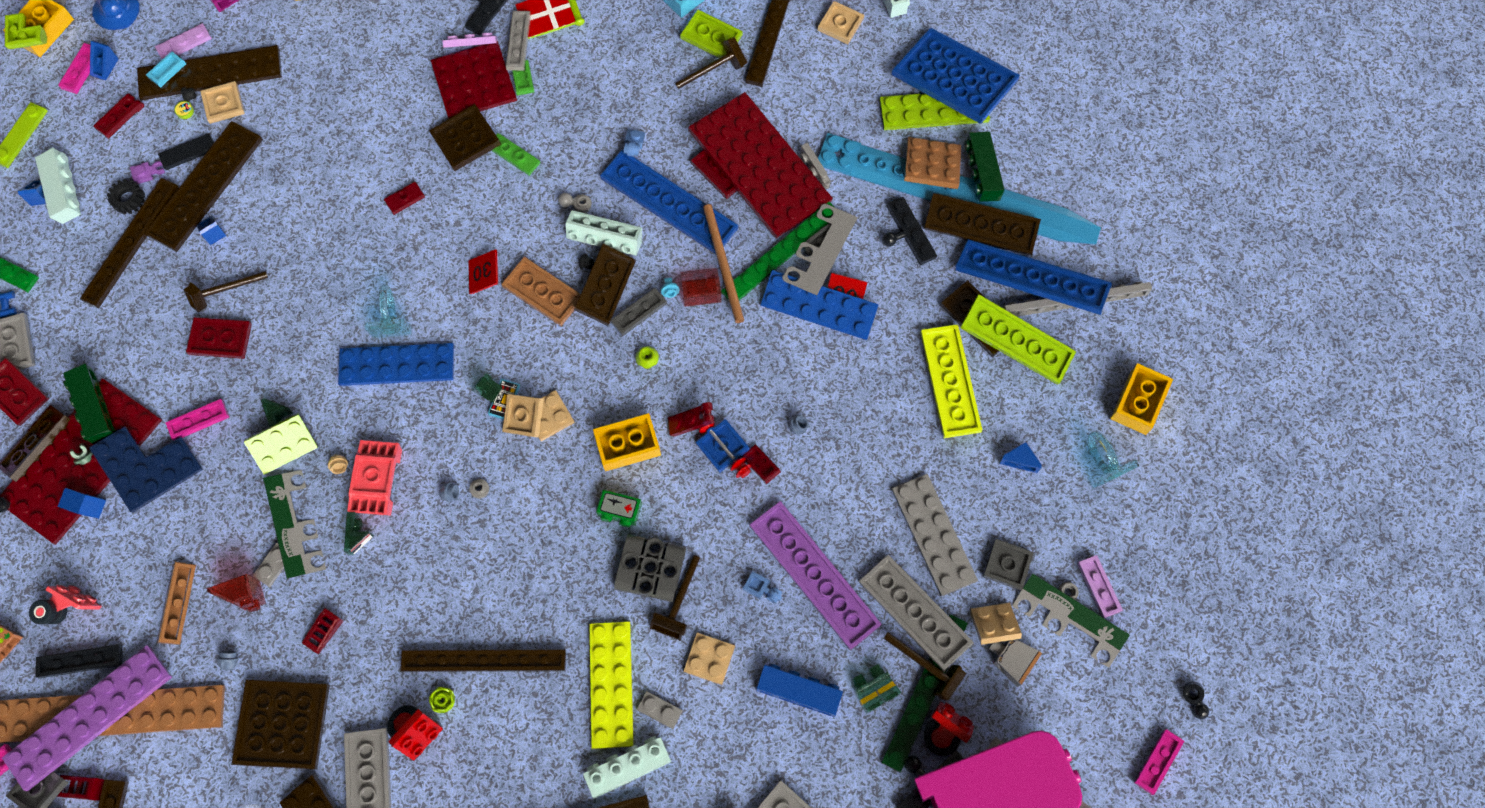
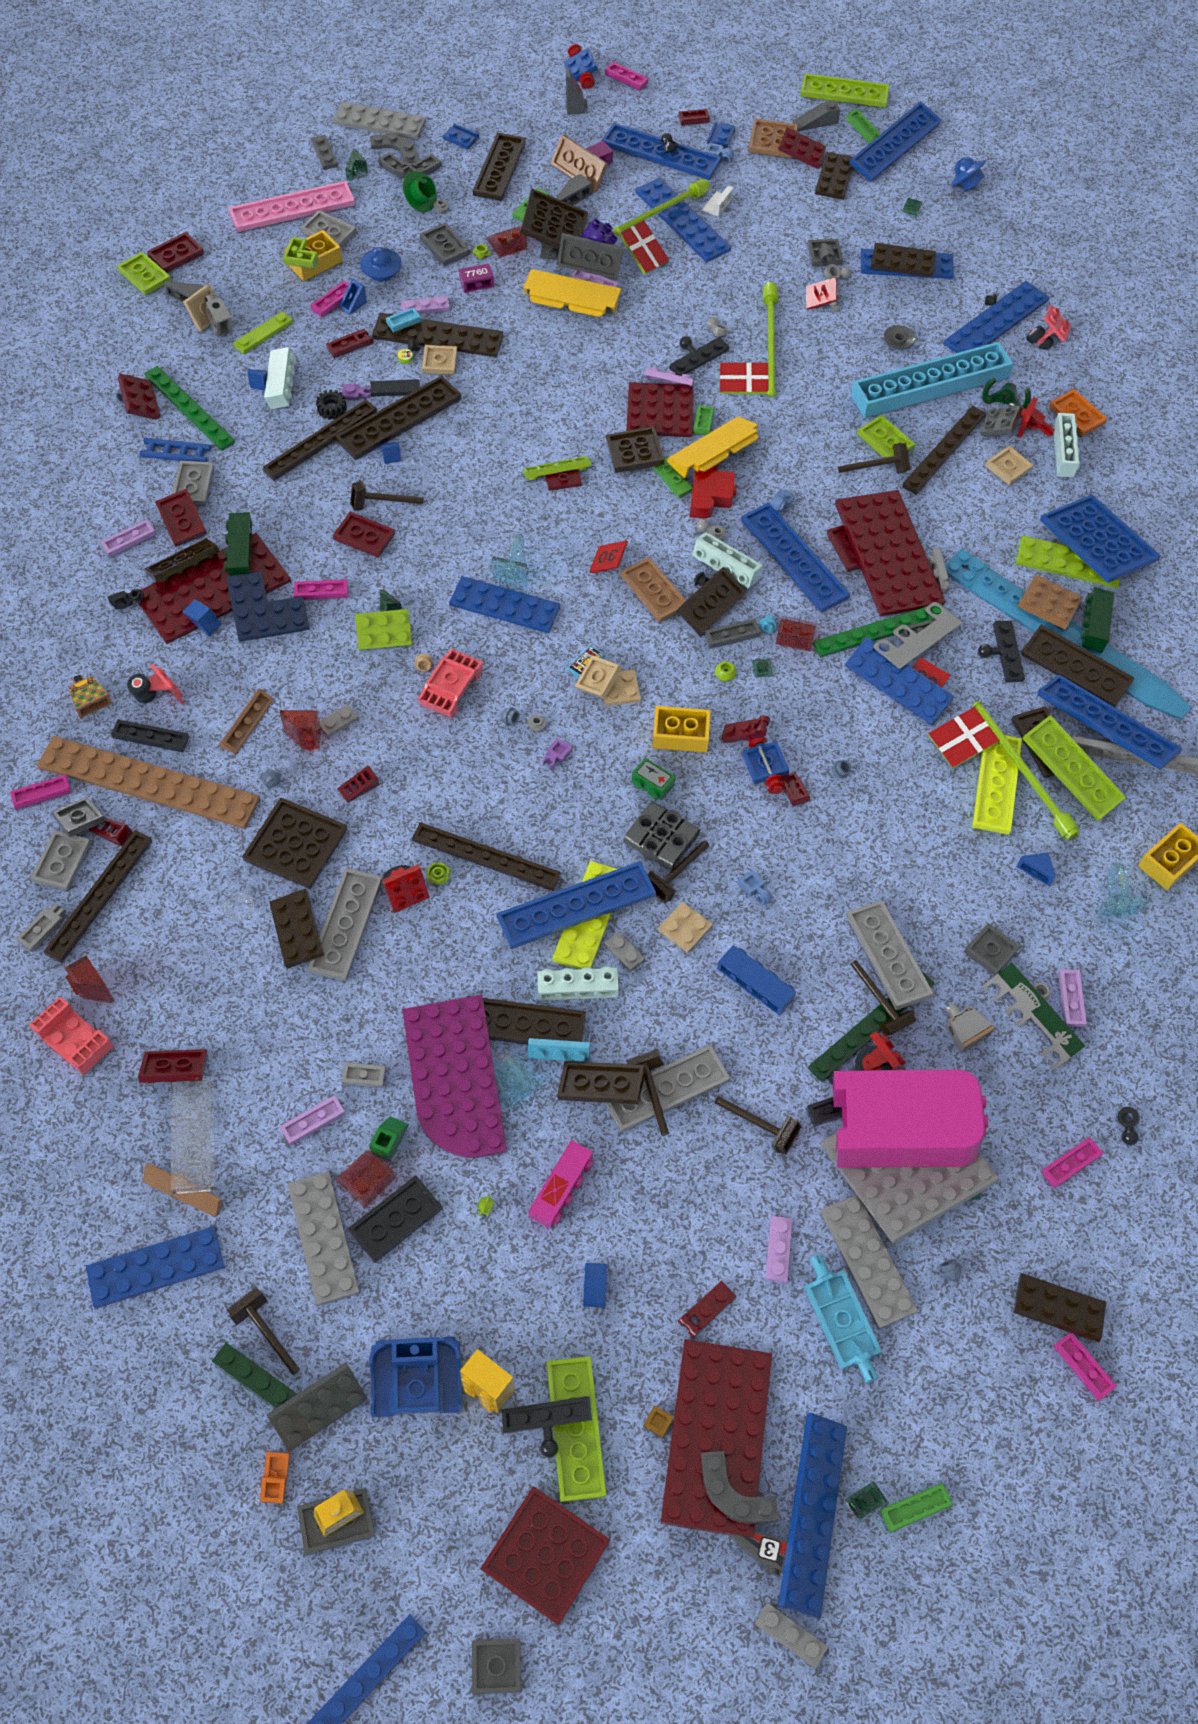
camera: 20 degrees right, 10 degrees down
(82, 457) = (218, 583): sand green plate -> none
(86, 718) = (140, 777): medium lavender plate -> none
(288, 531) = (361, 695): piece -> none
(353, 538) = (416, 721): clear green slope -> none
(391, 186) = (578, 463): none -> lime plate
(487, 388) = (574, 645): clear green slope -> none
(512, 513) = (557, 752): none -> medium lavender plate
(518, 40) = (711, 390): light grey tile -> none
(544, 106) = (715, 446): none -> yellow slope
(557, 154) = (711, 490): none -> red brick
(593, 684) = (575, 904): none -> blue plate
(681, 339) = (762, 668): none -> plate
(723, 263) = (824, 619): medium nougat piece -> none
(815, 575) = (808, 895): medium lavender plate -> none
(881, 683) = (826, 1005): clear green hips -> none
(911, 338) = (974, 733): none -> flag
(934, 535) = (931, 902): light grey plate -> none
(995, 623) = (960, 990): tan plate -> none

